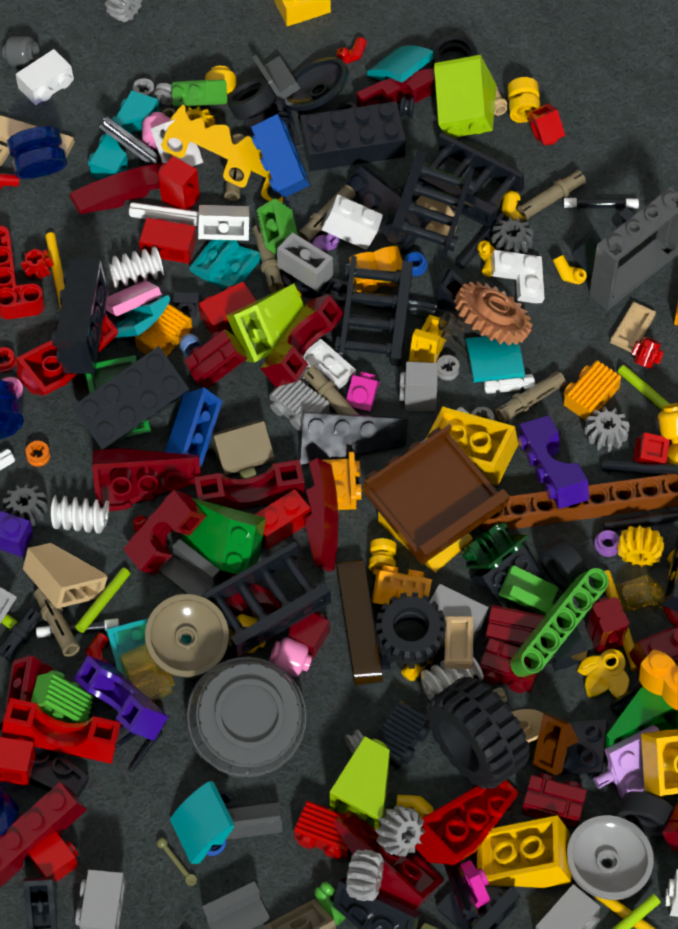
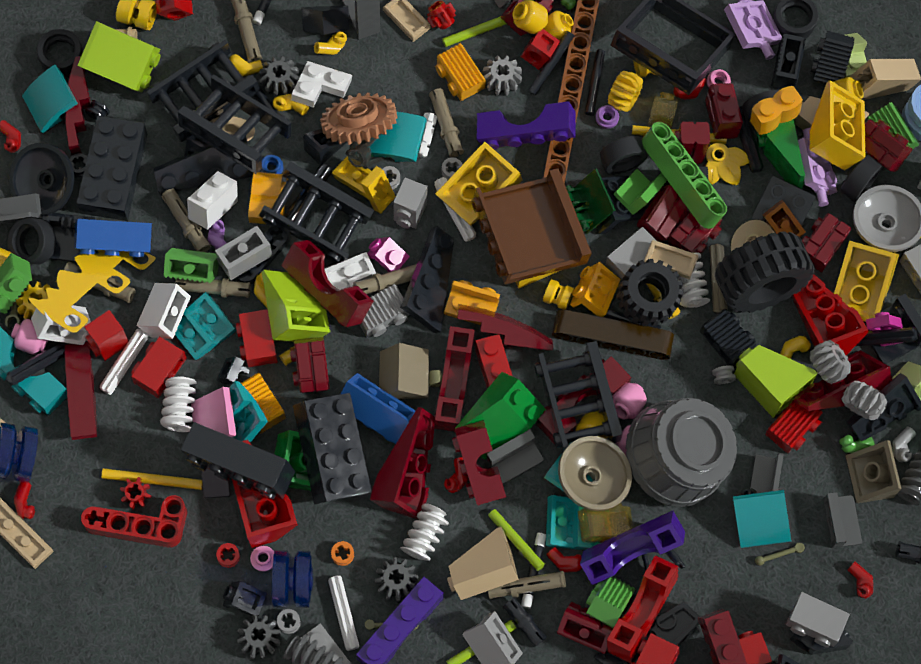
camera: 75 degrees left, 10 degrees up
(189, 341) = (278, 384): medium blue hinge -> none

